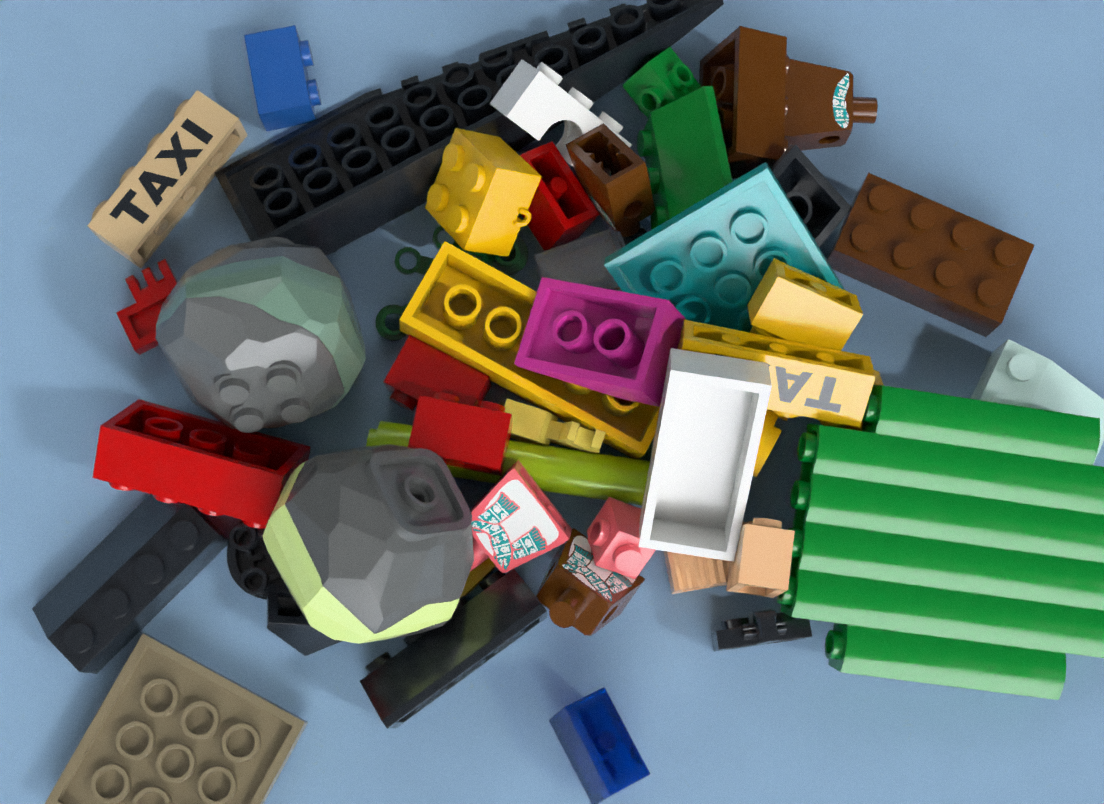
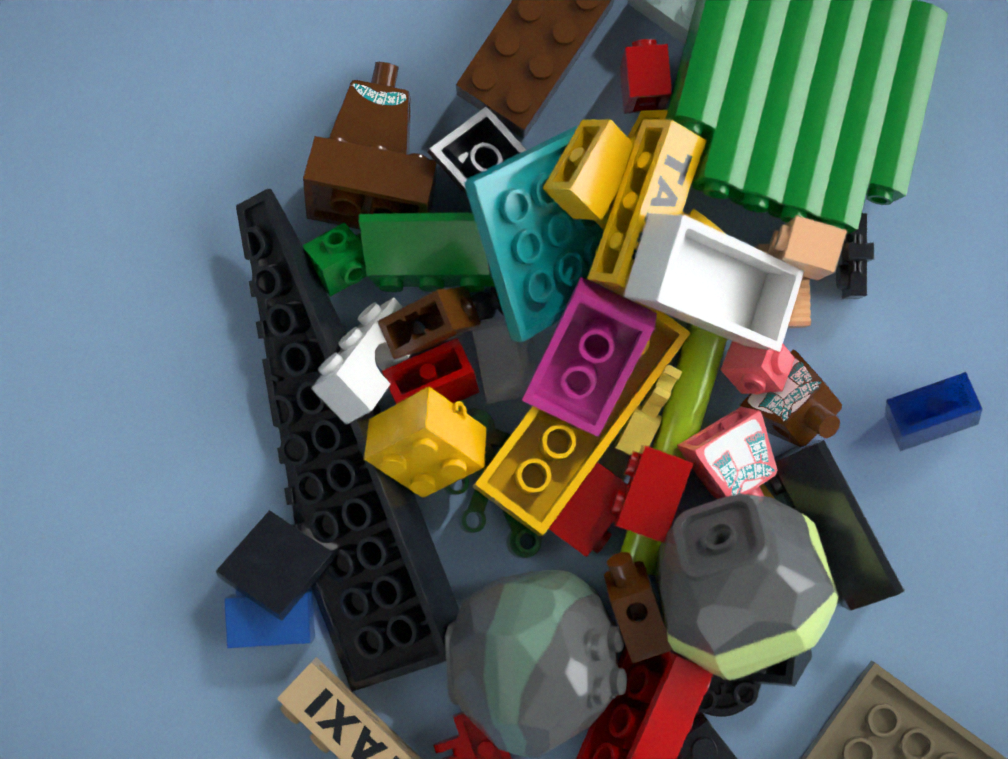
camera: 80 degrees left, 10 degrees up
(333, 427) = (632, 600): none -> reddish brown torso
(335, 71) = (275, 565): none -> black tile
(919, 363) = (645, 76): none -> red brick

